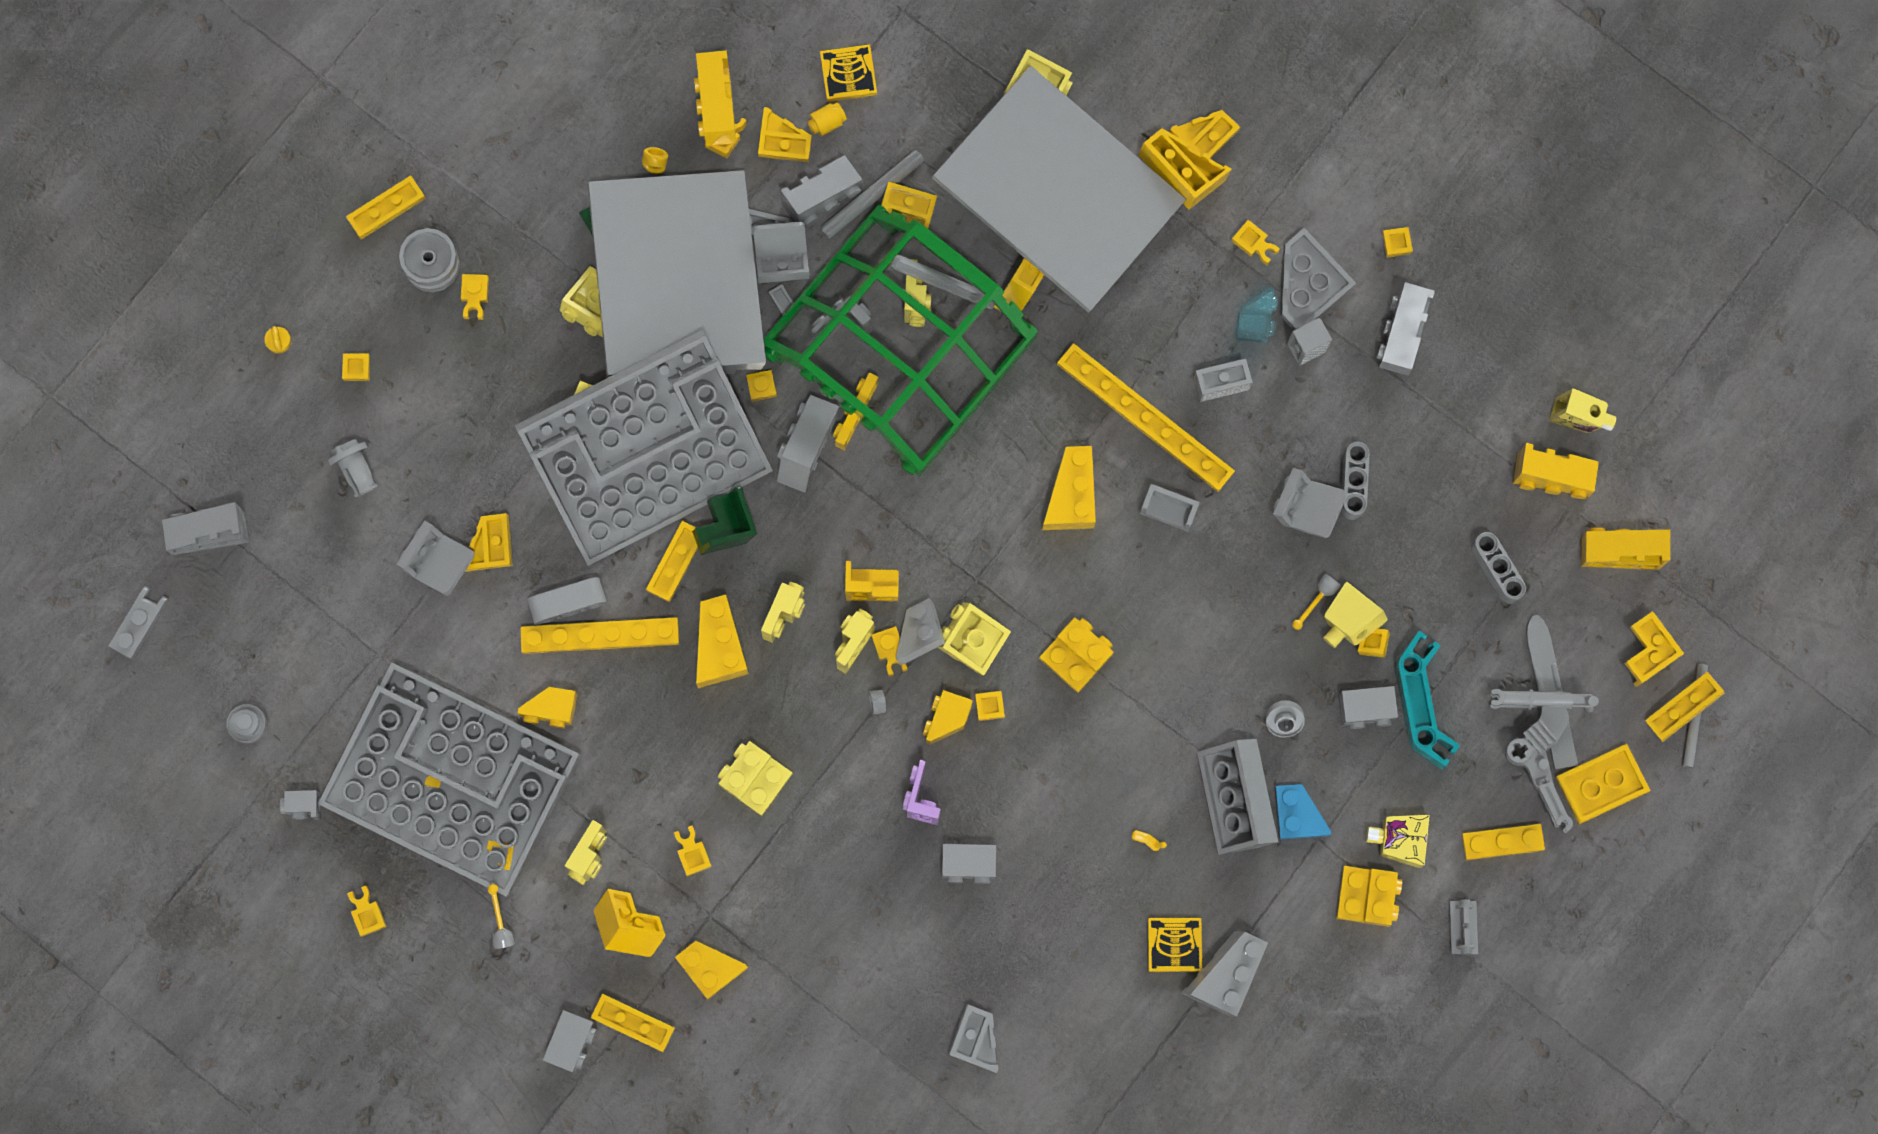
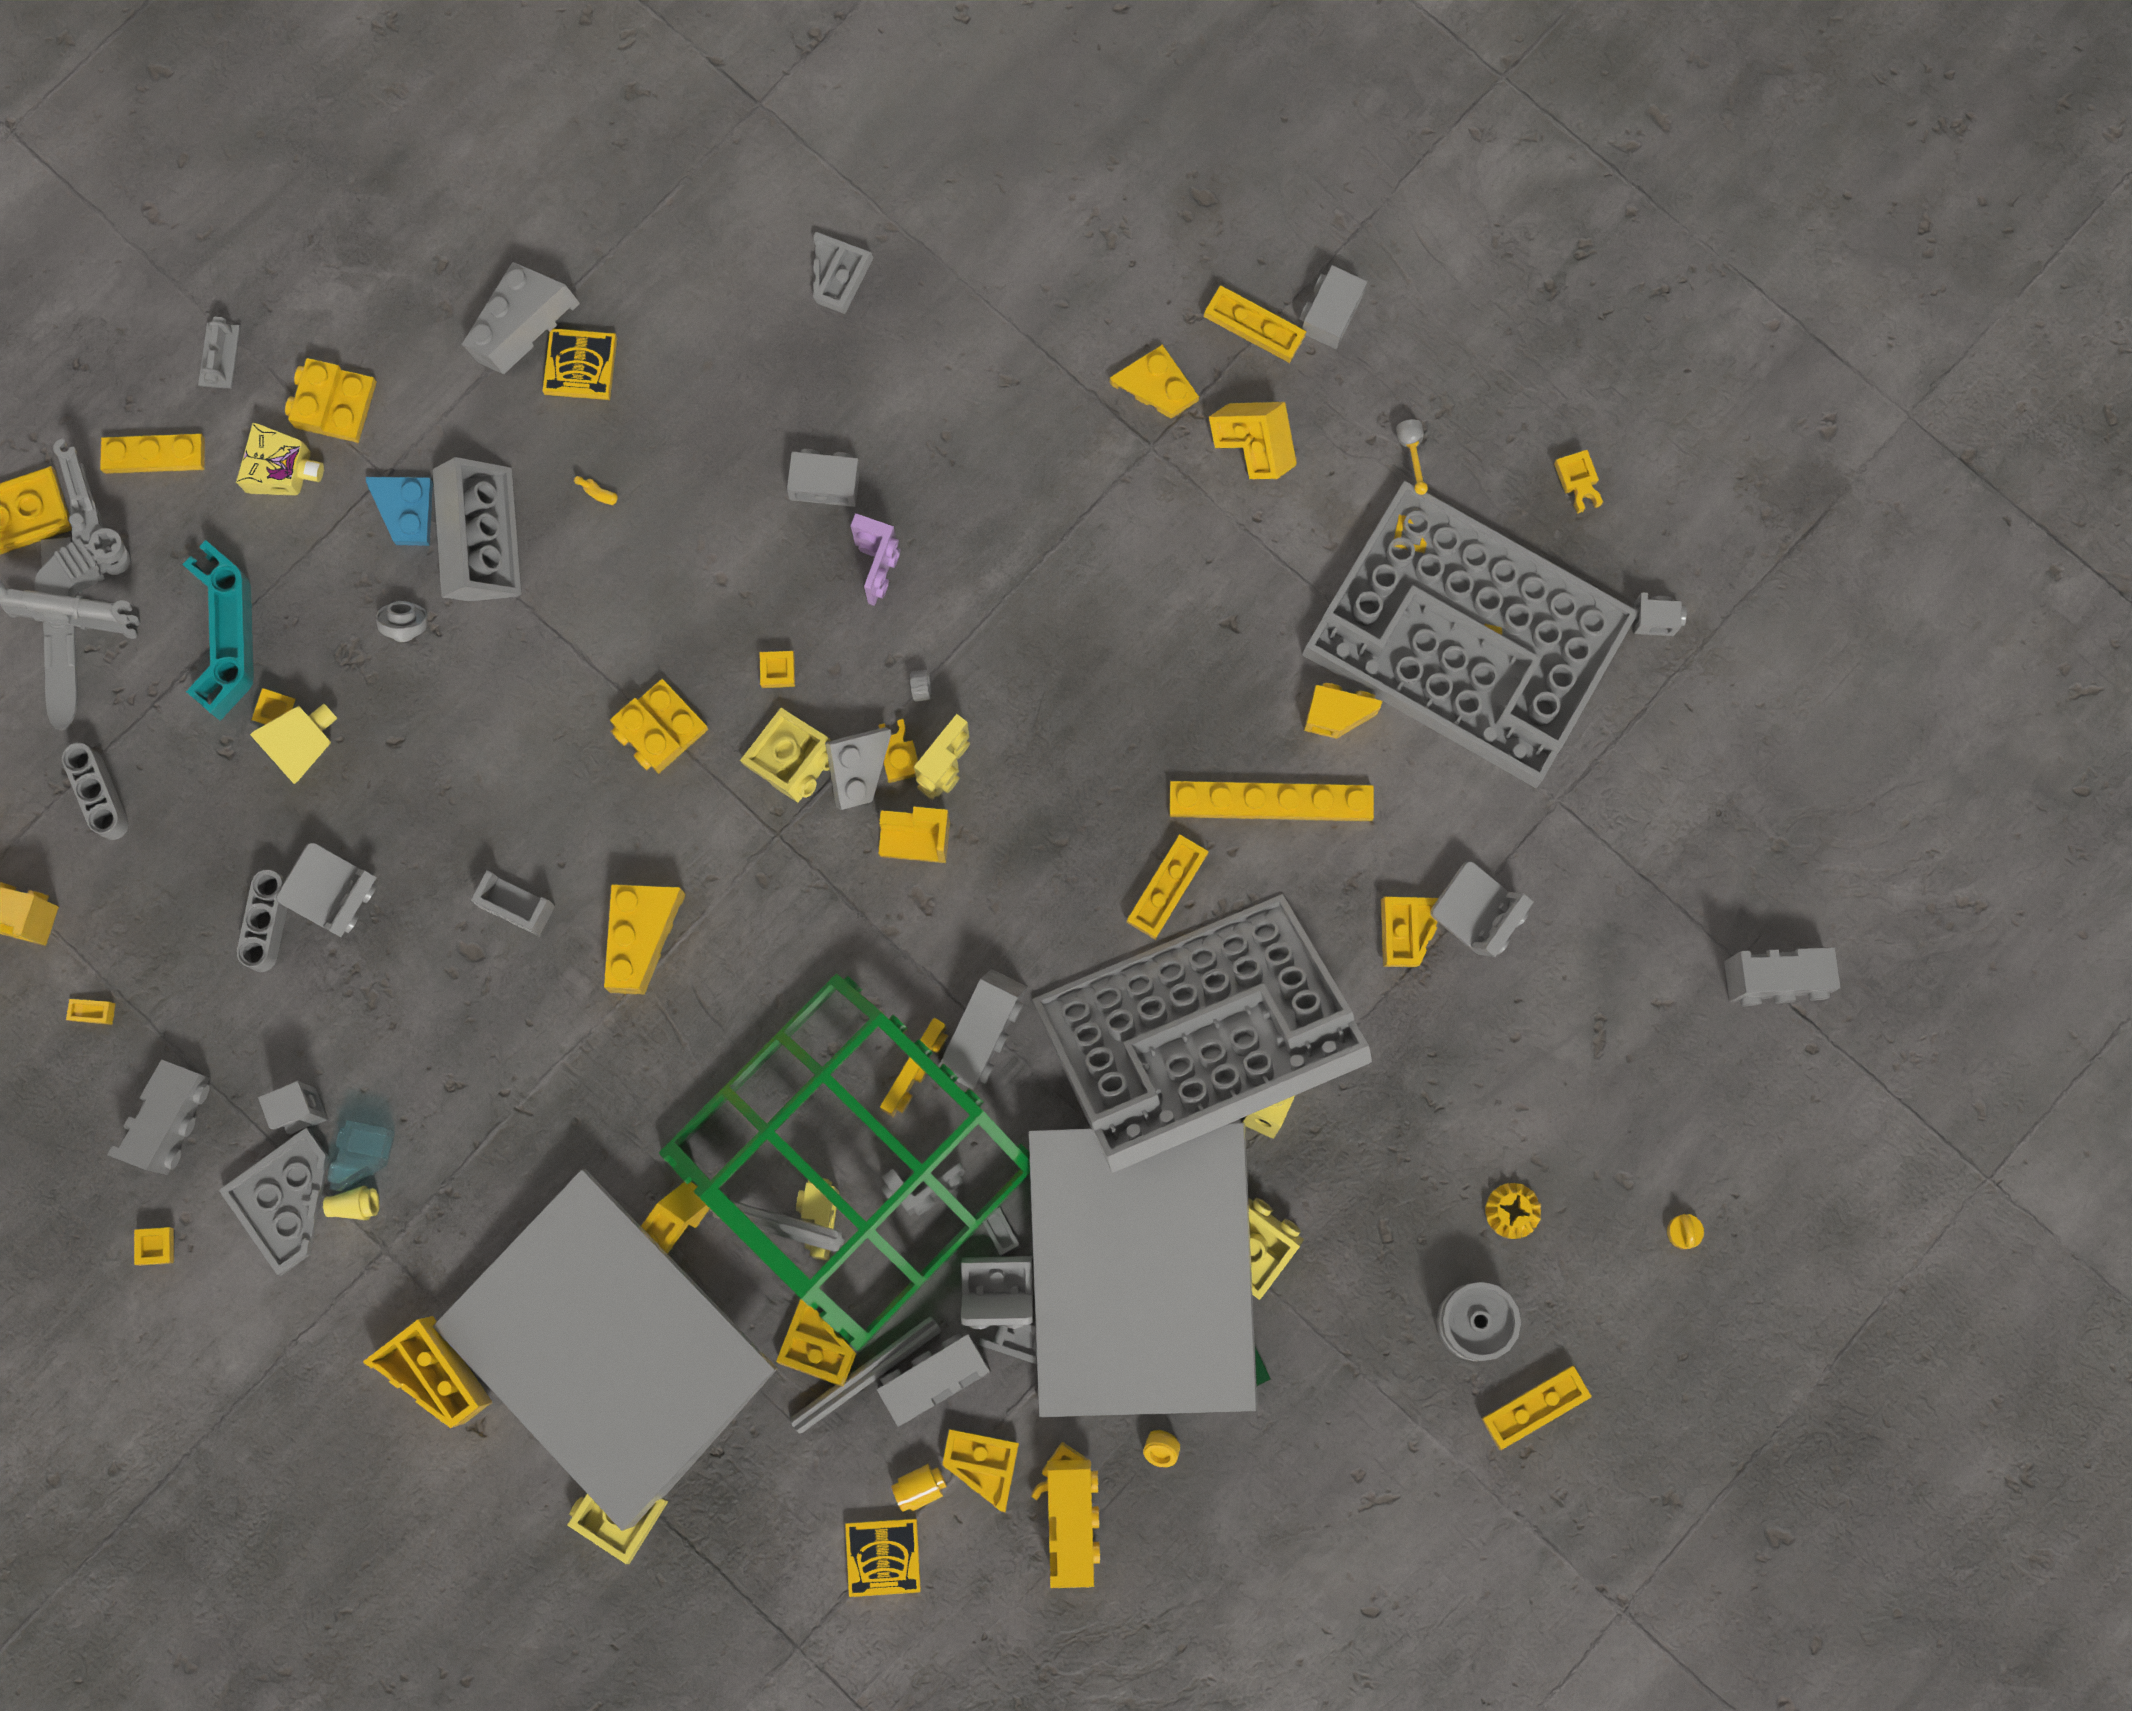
camera: 175 degrees left, 0 degrees up
(137, 624) = (1869, 862): light grey hinge -> none
(246, 723) = (1727, 722): light grey plate -> none
(353, 466) = (1586, 1044): light grey piece -> none
(356, 367) = (1580, 1183): yellow plate -> none
(412, 354) = (1499, 1218): none -> yellow gear
(474, 291) = (1417, 1279): yellow plate -> none
(567, 601) = (1311, 845): light grey beam -> none
(584, 861) = (1303, 512): light yellow plate -> none
(693, 855) = (1168, 516): yellow plate -> none
(718, 644) = (1117, 772): yellow wedge -> none
(731, 523) = (1091, 924): dark green panel -> none
(754, 777) = (1085, 605): light yellow plate -> none
(761, 385) = (1038, 1114): yellow plate -> none
(786, 606) = (1028, 807): light yellow plate -> none
(949, 716) = (830, 658): yellow slope -> none
(1145, 417) = (530, 1030): yellow plate -> none
(1207, 133) = (392, 1424): yellow wing -> none
(1222, 380) = (418, 1068): light grey panel -> none
(1252, 240) = (351, 1264): yellow plate -> none
(1256, 282) = (353, 1204): none -> light yellow cone
(1327, 587) = (323, 785): hinge -> none
(1368, 706) = (293, 628): light grey brick -> none
(1474, 407) = (90, 1011): none -> yellow piece

